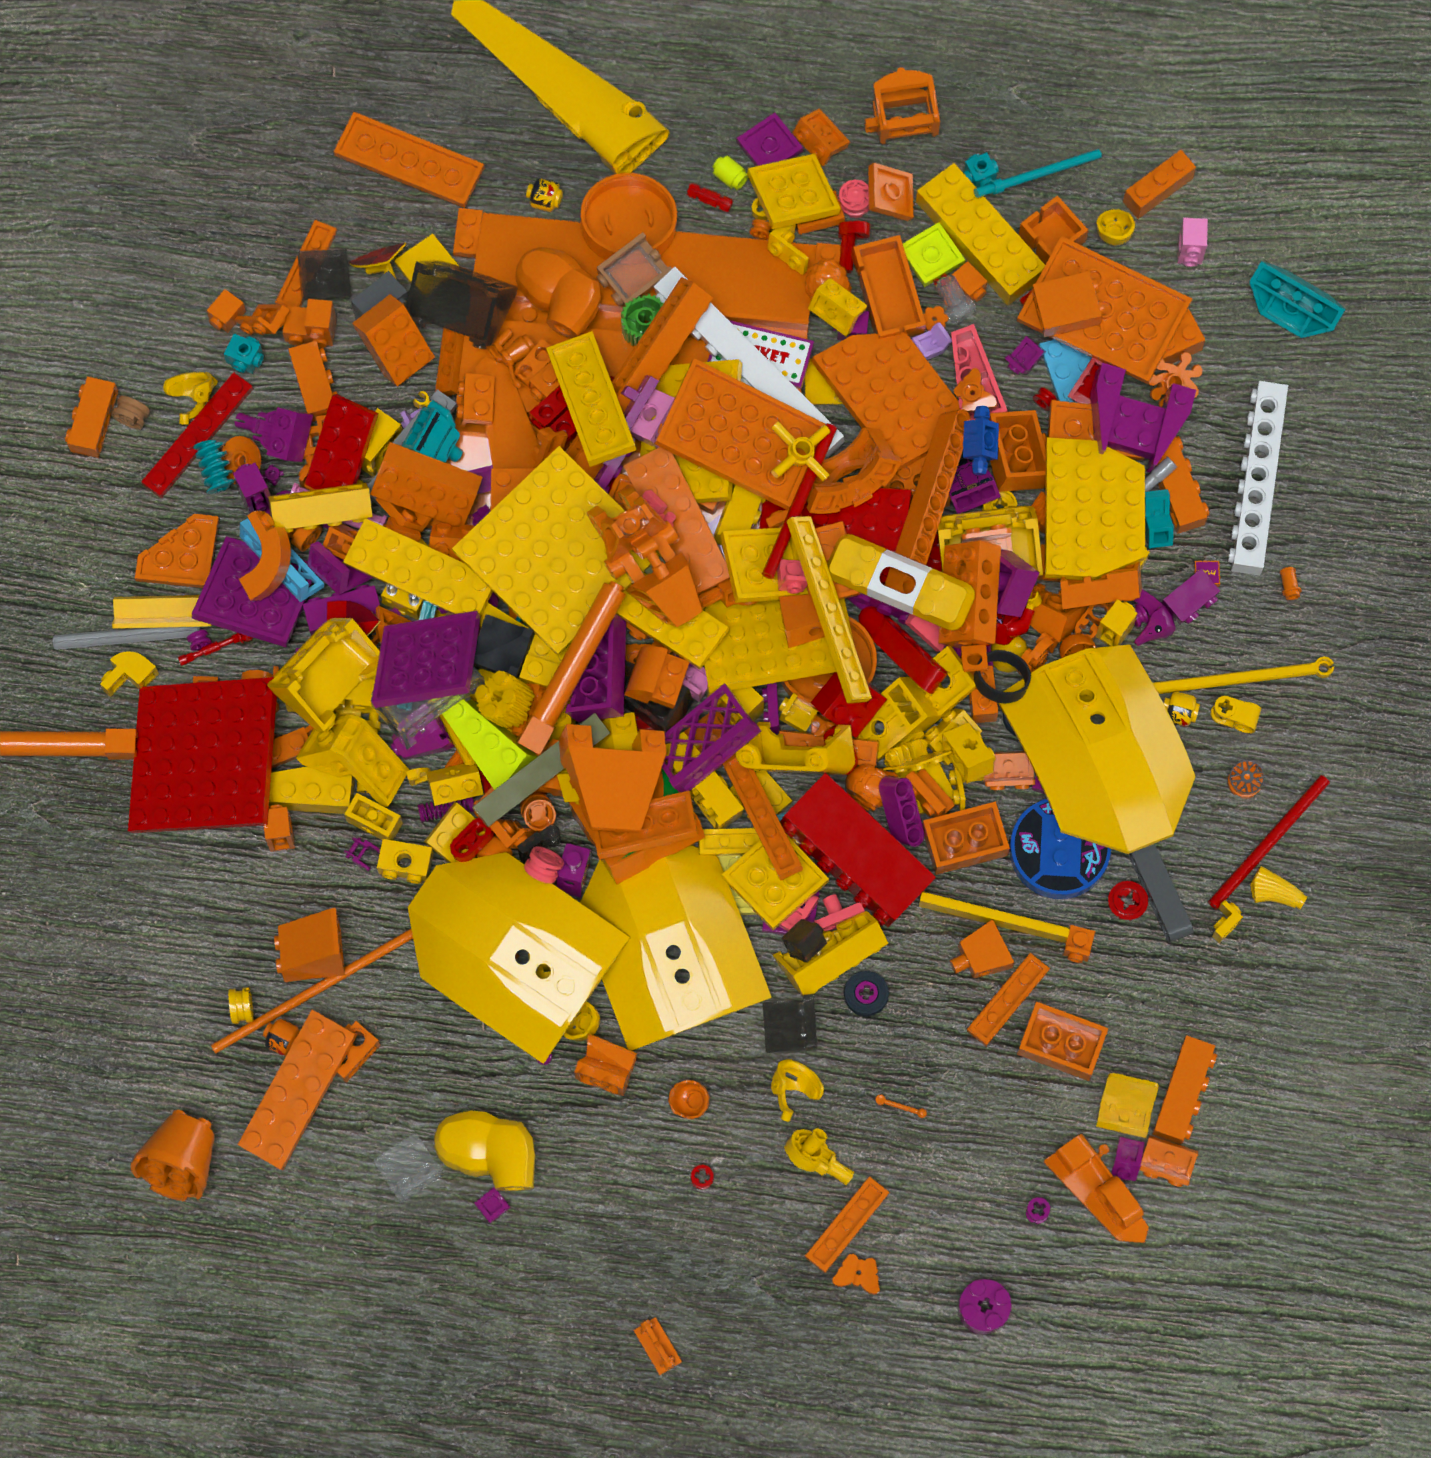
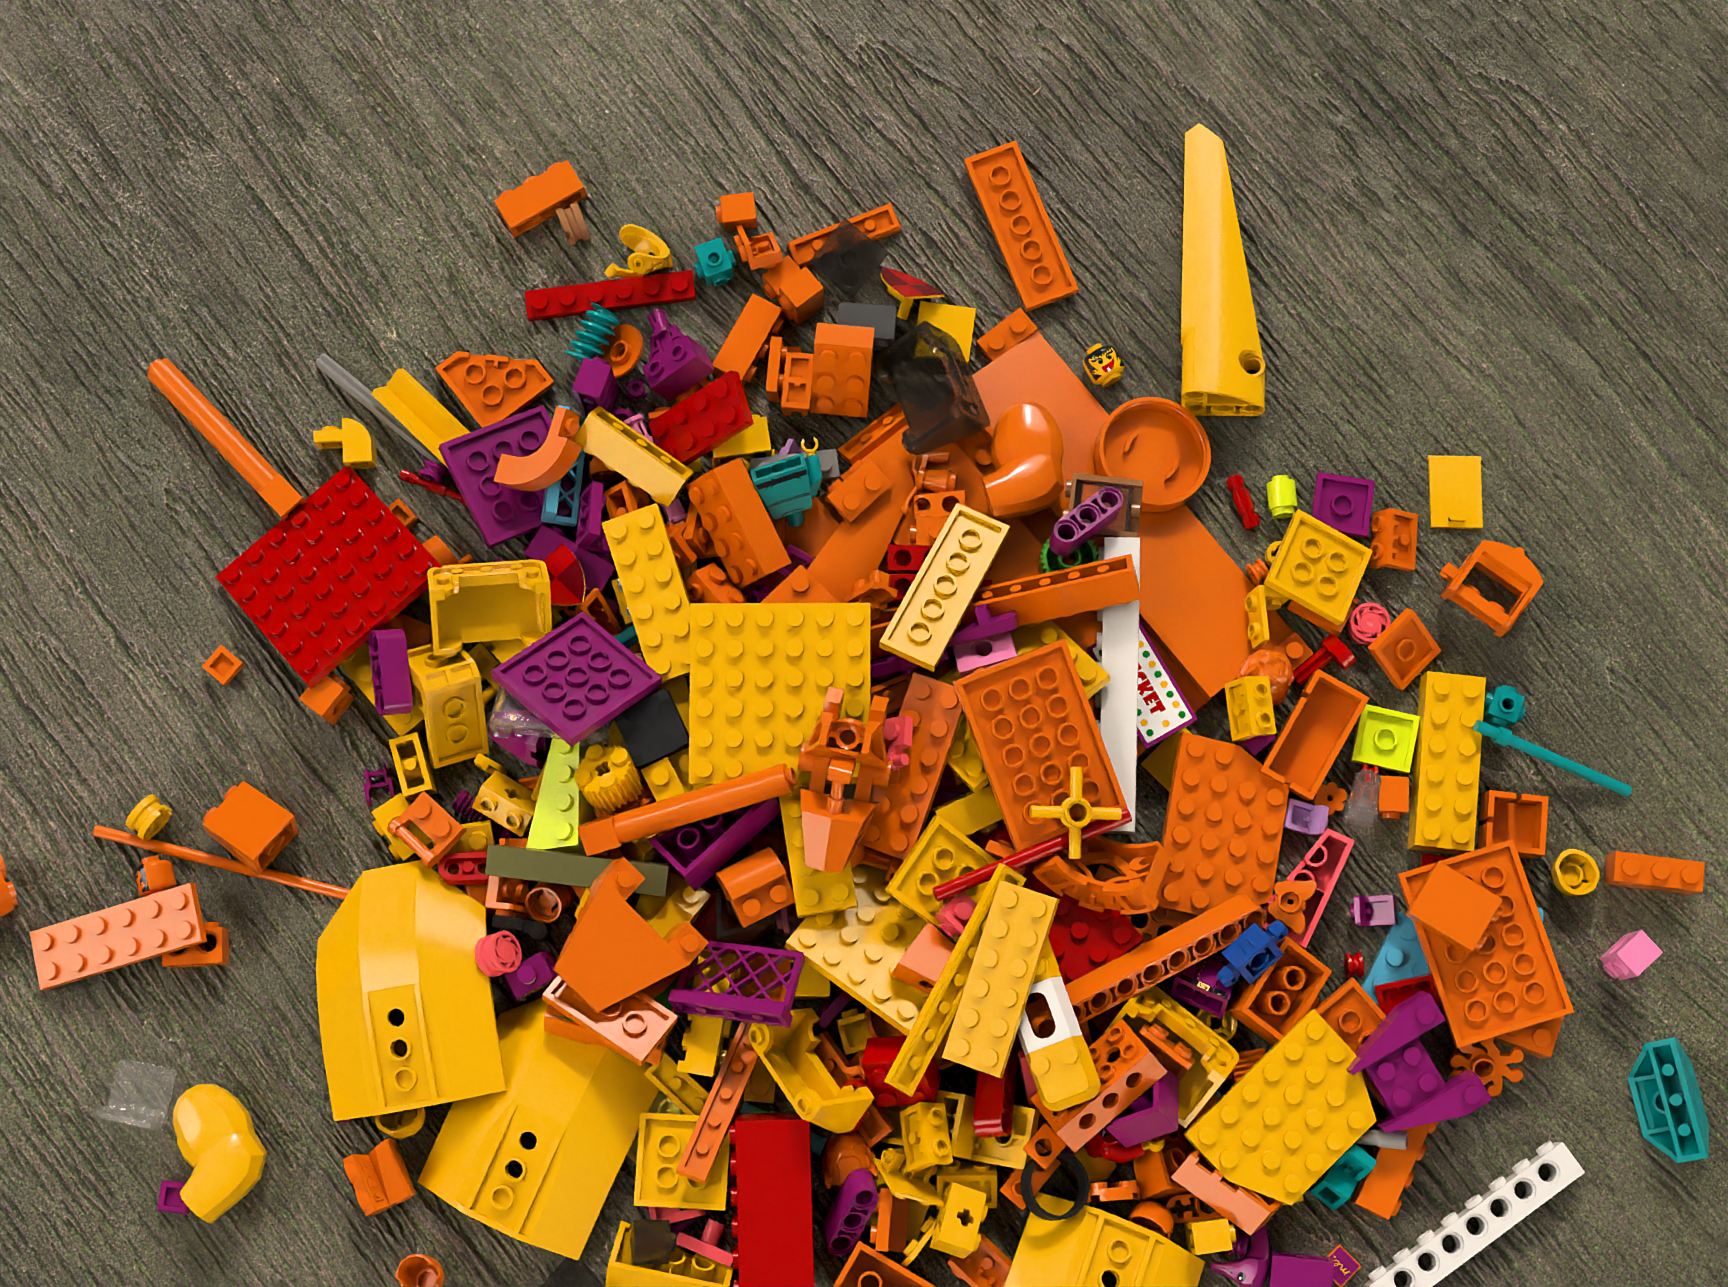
camera: 45 degrees right, 5 degrees up
(189, 876) = (223, 665): none -> orange plate
(306, 769) = (390, 672): none -> magenta beam
(354, 378) = (776, 368): none -> orange bracket
(373, 374) = (797, 383): none -> orange hinge
(423, 833) = (433, 822): none -> orange plate
(634, 273) = (1077, 530): none -> magenta beam
(827, 76) = (1455, 492): none -> yellow container
(854, 581) = (1000, 979): none -> yellow plate
(900, 723) = (925, 1136): none -> yellow bracket

